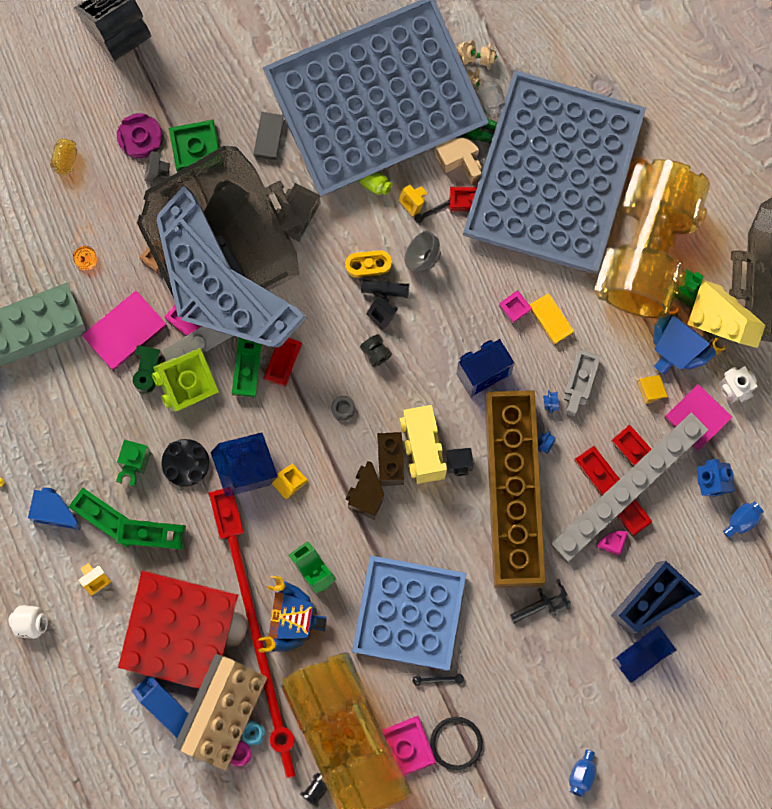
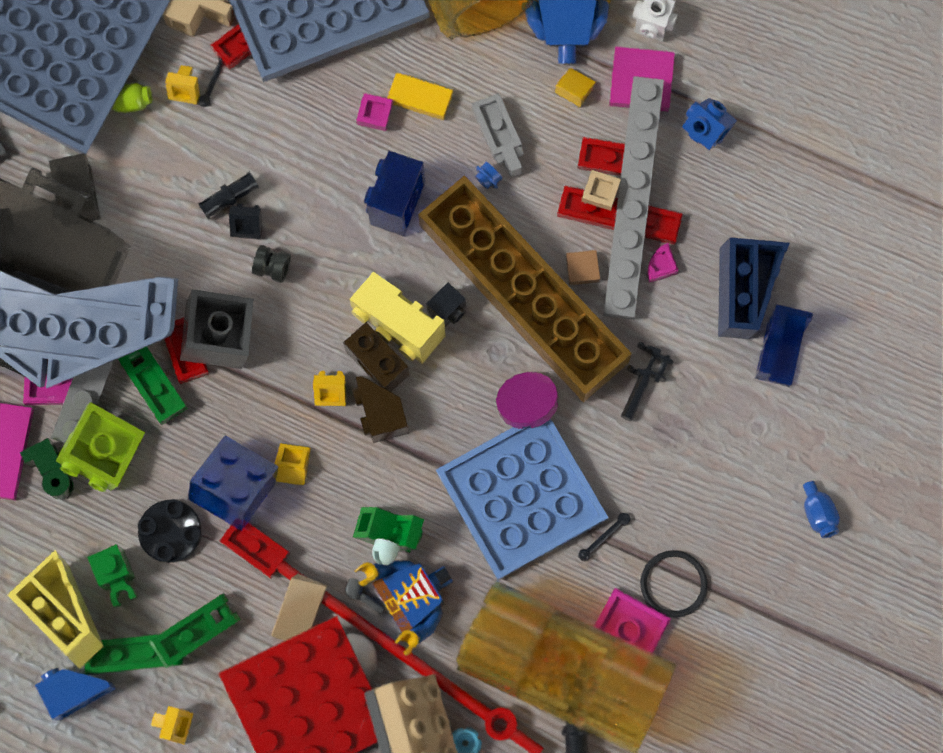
camera: 35 degrees left, 0 degrees up
(83, 456) = (58, 609): none -> light yellow wedge
(221, 570) = (299, 607): none -> tan slope
(262, 588) = (354, 591): none -> dark grey hand
(297, 580) = (384, 551): none -> light aqua hinge
(310, 364) = (216, 329): none -> dark grey brick
(343, 408) = (285, 348): dark grey tile -> none
(347, 454) = (329, 389): none -> yellow tile
(368, 263) = (189, 184): yellow plate -> none
(423, 252) = (237, 129): dark grey piece -> none
(460, 558) = (527, 400): none -> magenta tile
(545, 442) = (516, 218): blue plate -> none
(562, 504) = (582, 267): none -> medium nougat tile
(611, 466) = (601, 190): none -> tan tile
(744, 519) = (767, 141): blue plant -> none

